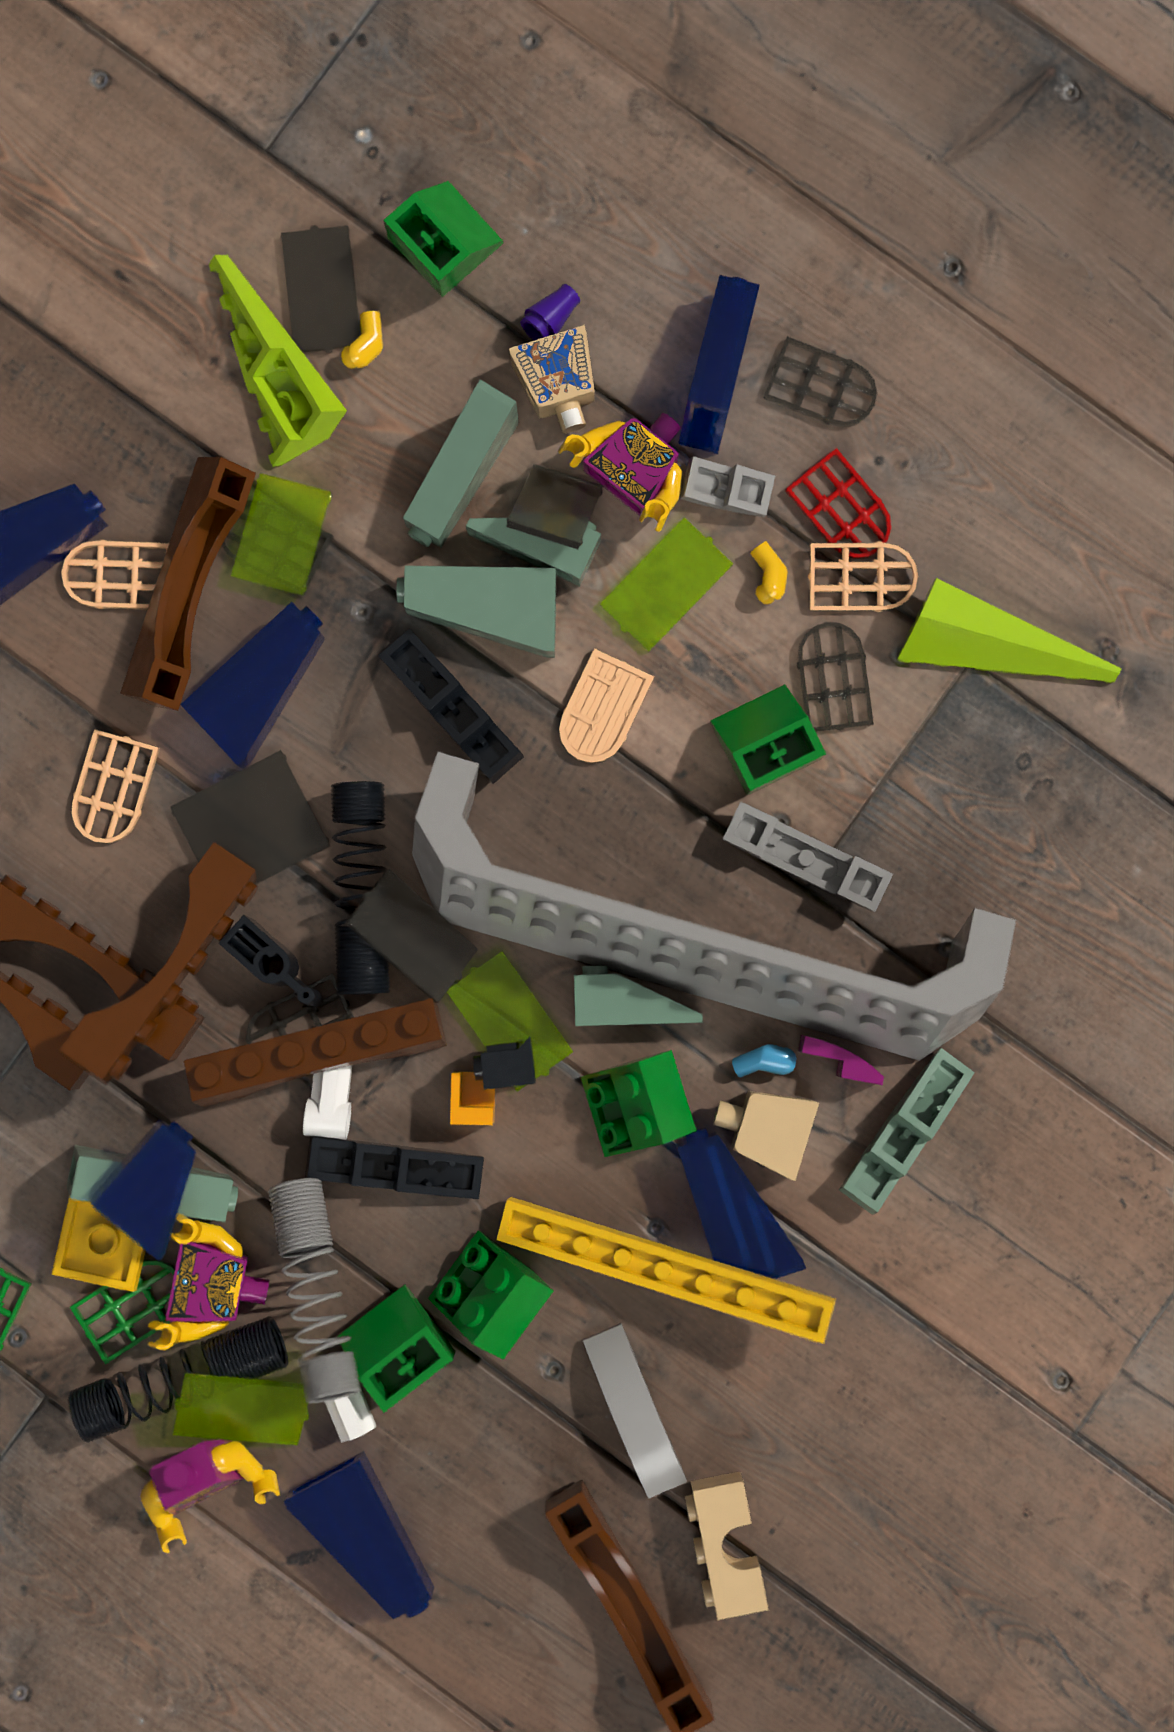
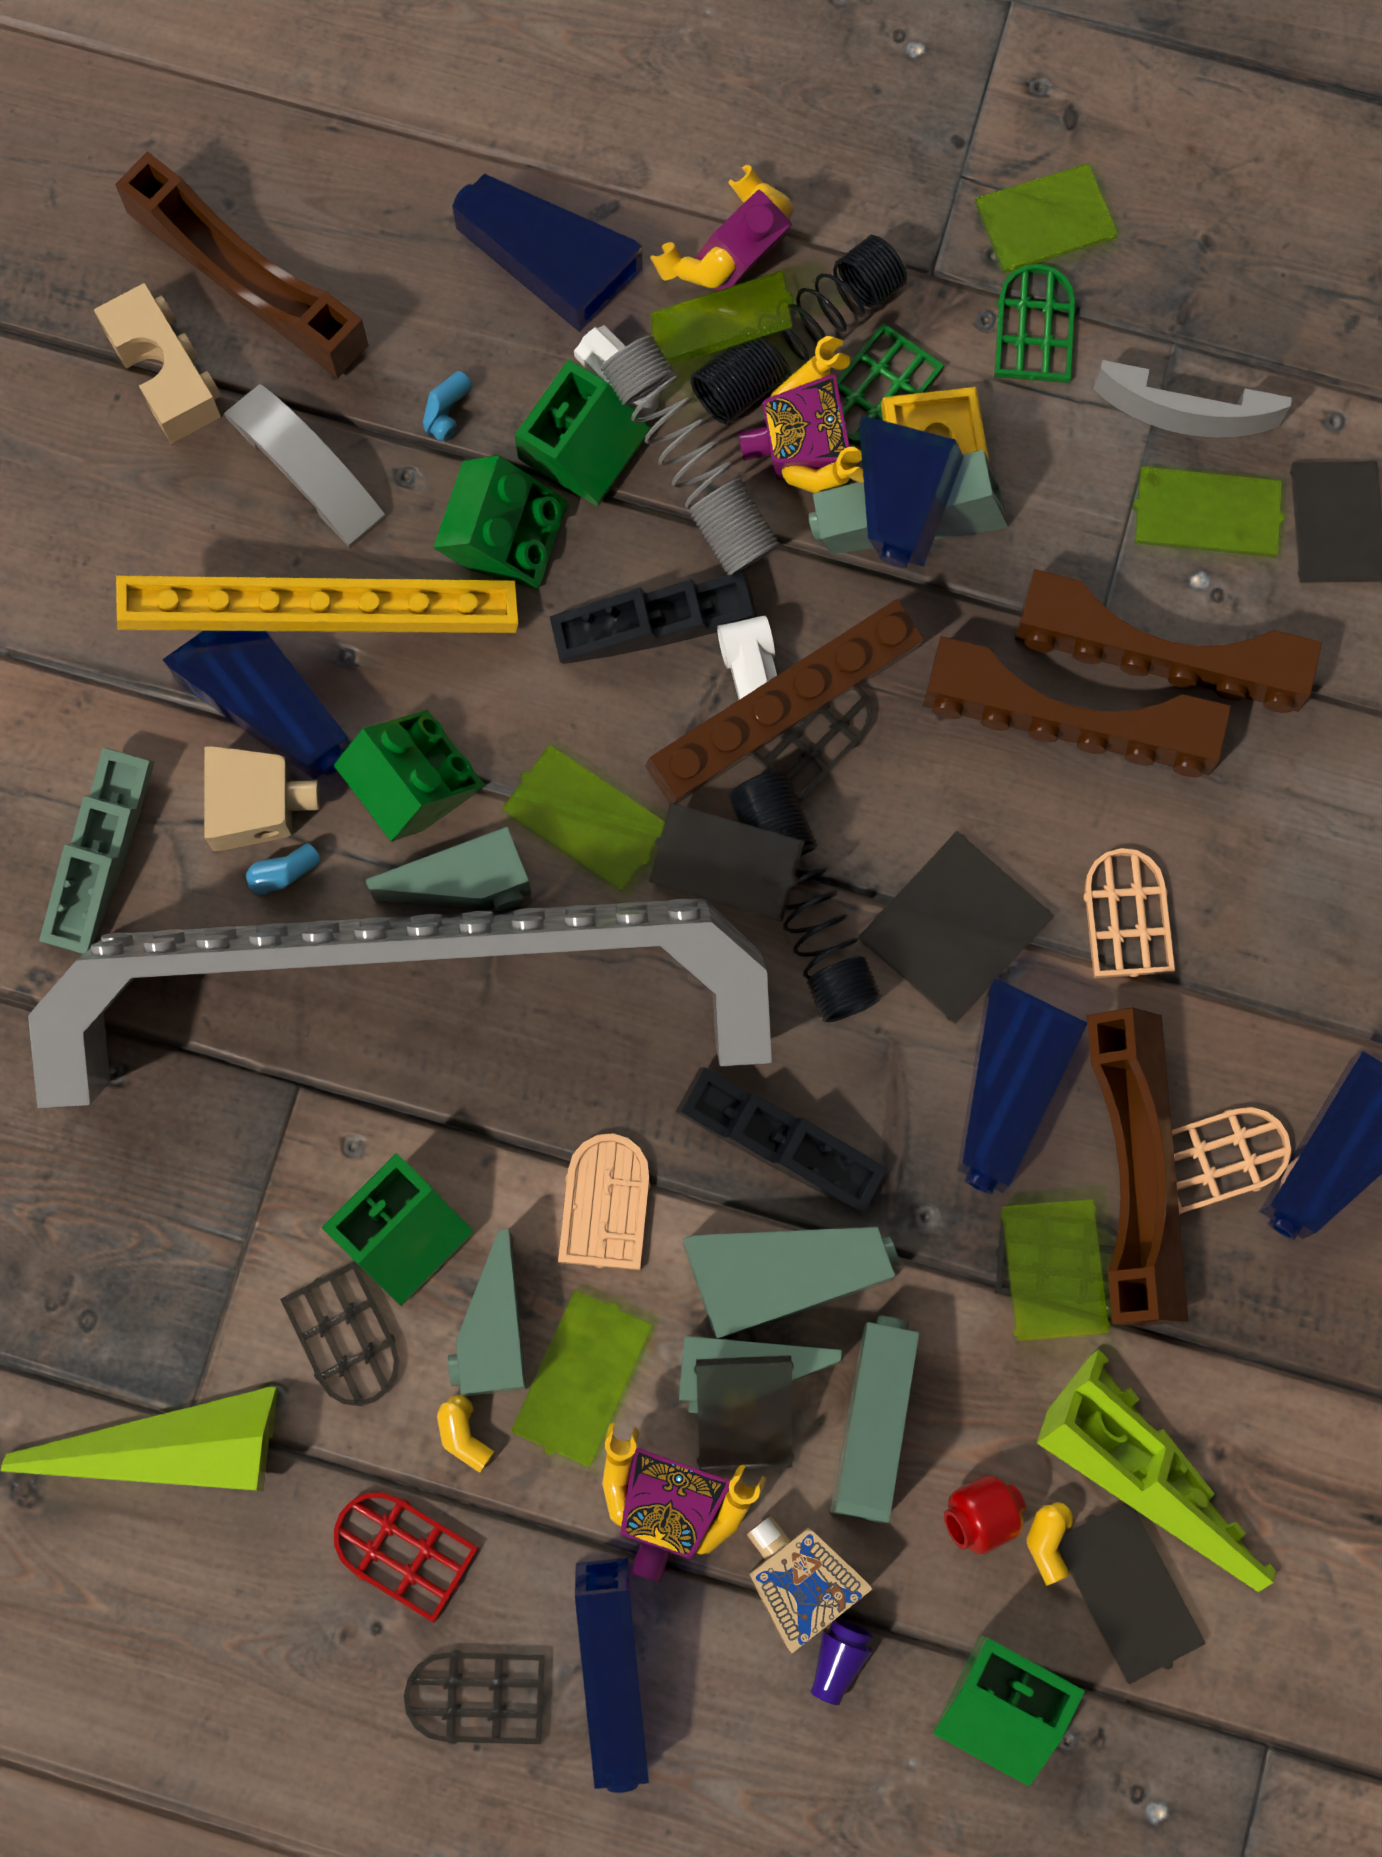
camera: 160 degrees right, 10 degrees down
(108, 1036) = (1014, 625): reddish brown arch -> none
(258, 961) = (897, 789): black piece -> none
(405, 375) = (984, 1514): none -> red head
(470, 1101) = (594, 717): light orange panel -> none
(505, 1065) = (569, 761): black window -> none
(505, 1421) = (439, 403): none -> dark azure arm
(725, 633) = (491, 1337): none -> sand green slope
(727, 488) = (549, 1522): light grey slope -> none
(807, 857) = (306, 1112): light grey slope -> none
(847, 566) = (373, 1477): light nougat window -> none
(849, 1064) = (182, 897): magenta slope -> none

